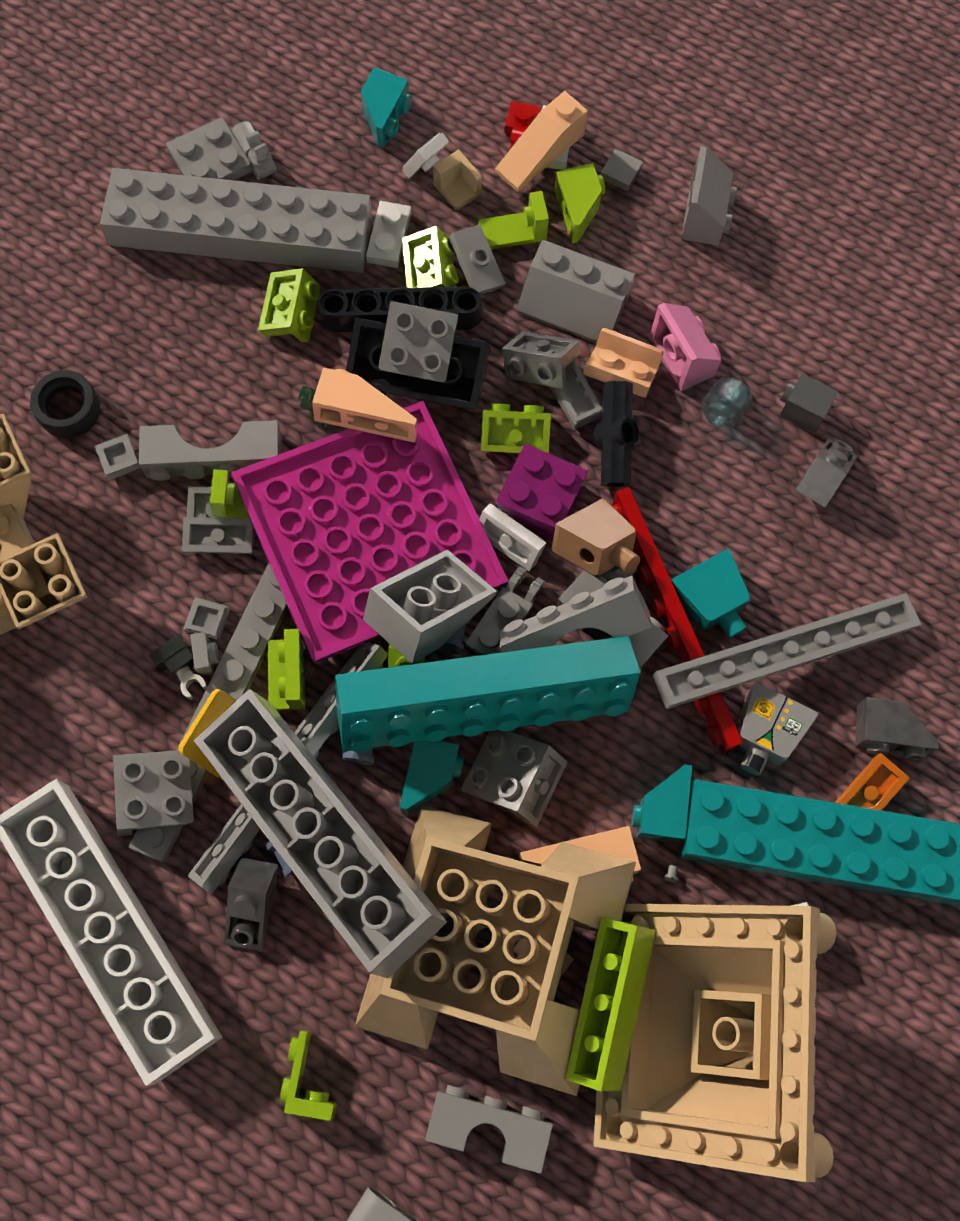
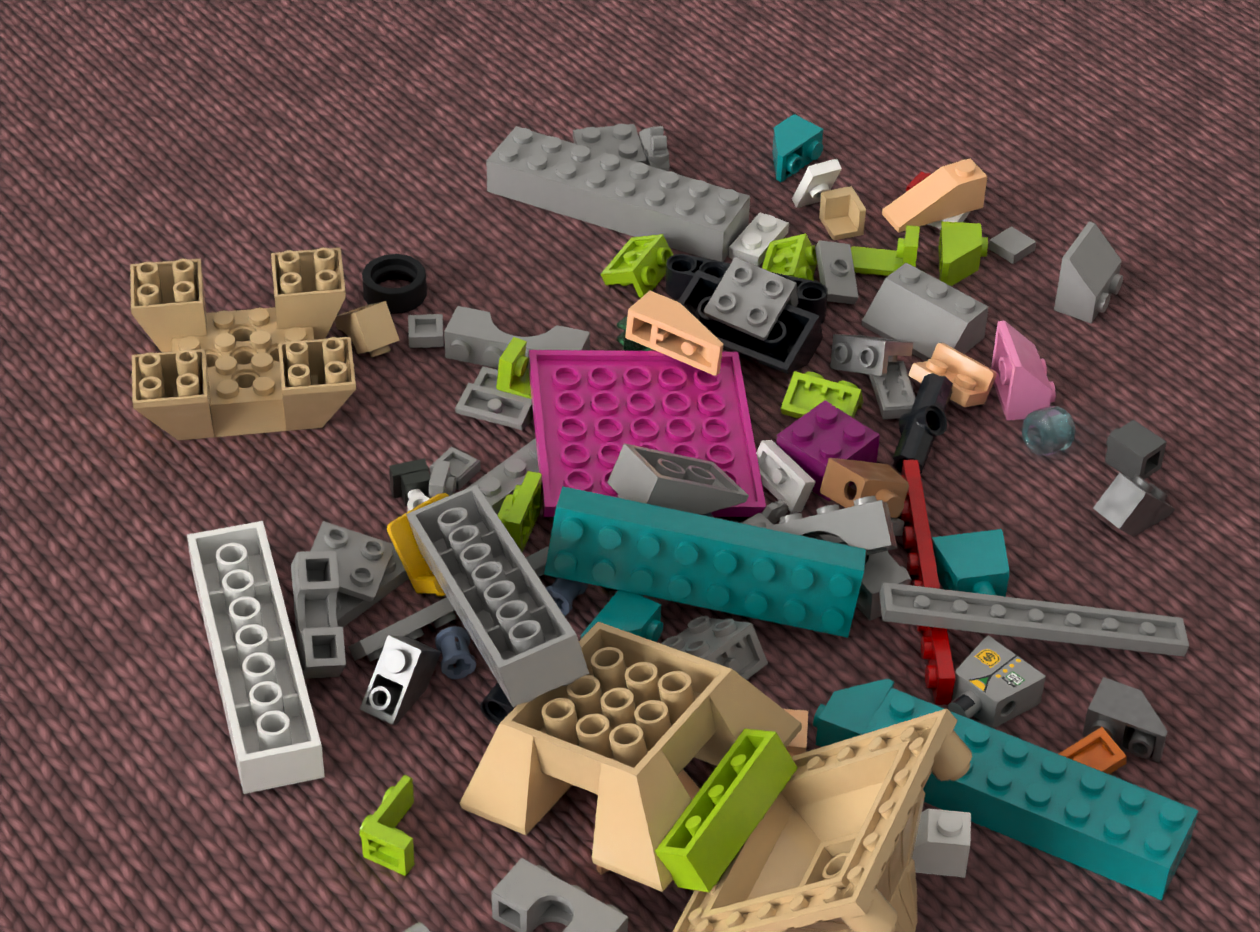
camera: 20 degrees right, 30 degrees down
(61, 474) = (369, 328): none -> tan arch
(152, 876) = (314, 596): none -> light grey arch

